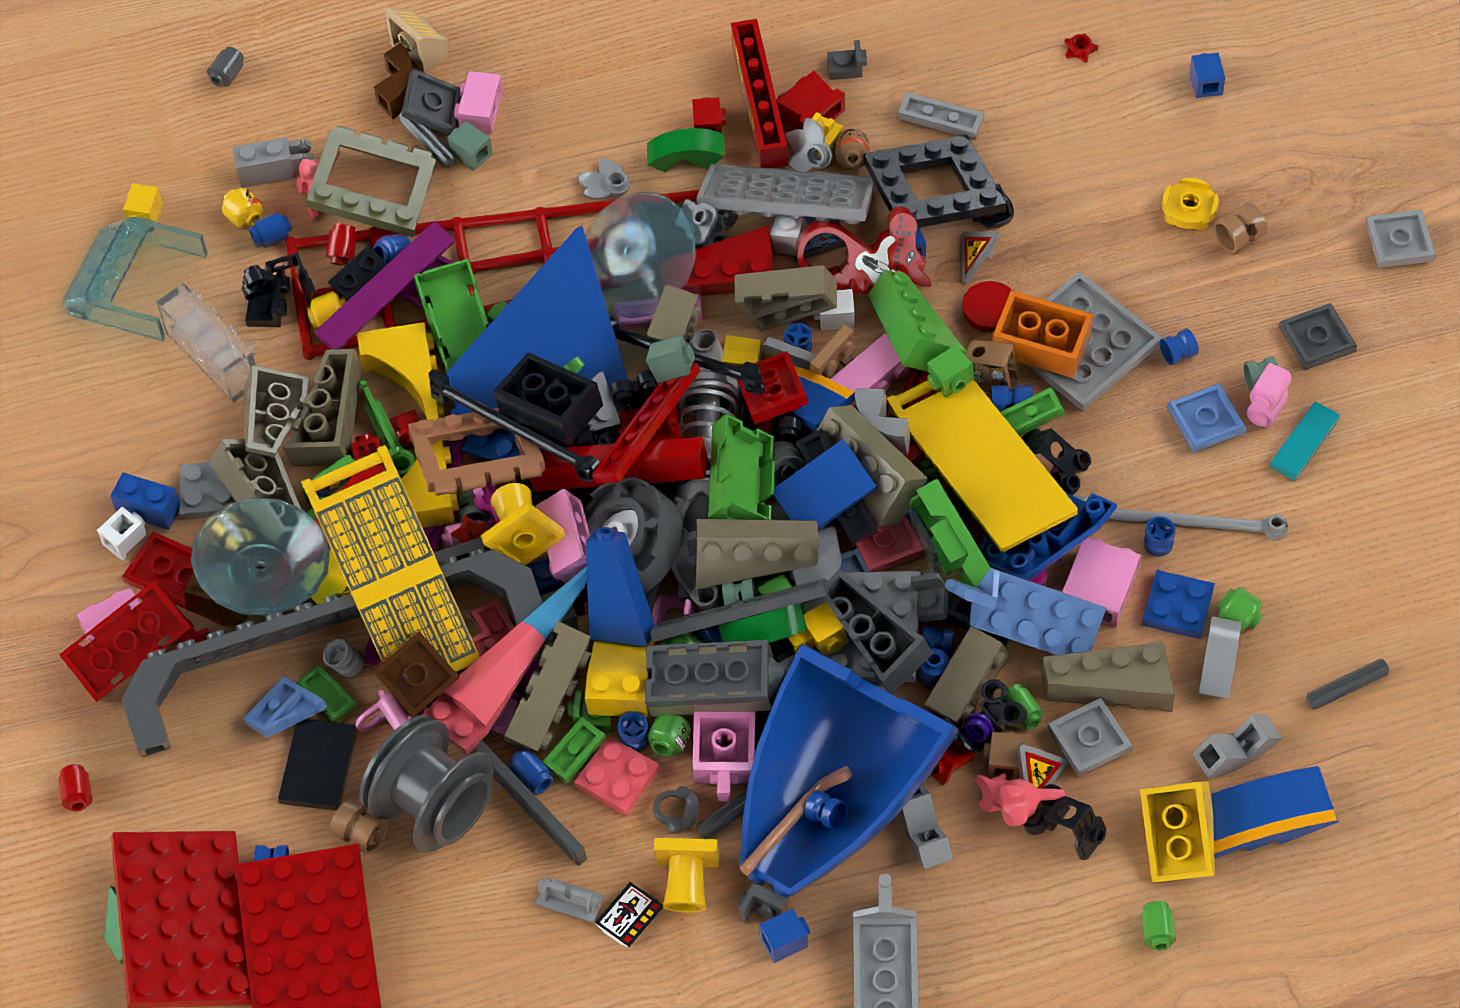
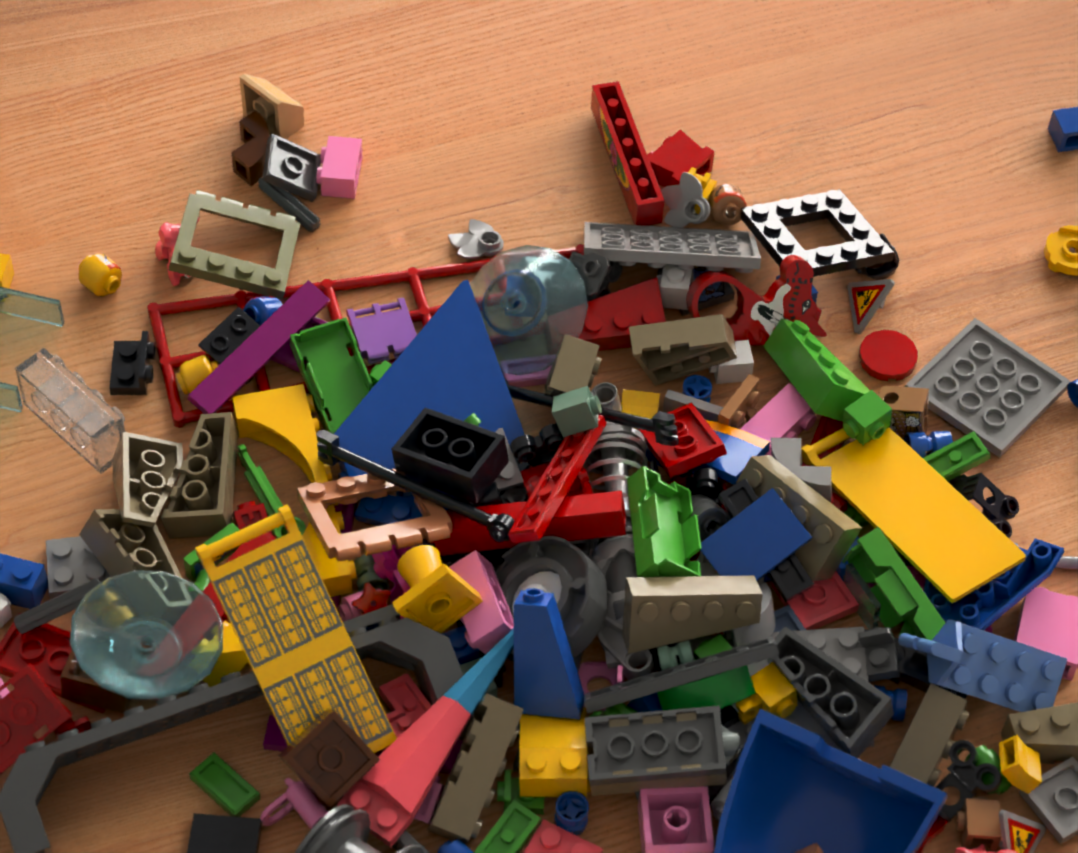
camera: 10 degrees left, 5 degrees down
(180, 529) = (53, 608): none -> dark grey axle
(225, 67) = (74, 137): dark grey brick -> none
(259, 281) = (127, 344): black piece -> none
(269, 160) = (126, 227): light grey hinge -> none
(270, 230) = (130, 296): blue brick -> none
(283, 707) = (177, 802): medium blue wing -> none
(341, 244) = (208, 308): red brick -> none
(343, 658) = (241, 744): light grey wheel -> none
(400, 426) = (287, 493): red bracket -> none
(470, 145) = (335, 208): sand green brick -> none
(504, 271) = (382, 331): none -> medium lavender plate
(669, 734) = (612, 815): bright green head -> none
(691, 144) = (567, 203): green brick -> none
(708, 114) = (576, 179): red brick -> none
(847, 63) = (709, 124): dark grey bracket -> none
(933, 668) = (892, 734): blue brick -> none
(940, 115) = (810, 172): light grey plate -> none
(978, 727) = (958, 792): dark purple plate -> none
(1044, 333) = (958, 377): orange brick -> none
(1046, 702) = (1020, 764): none -> yellow piece
(1083, 41) = (942, 108): red plate -> none

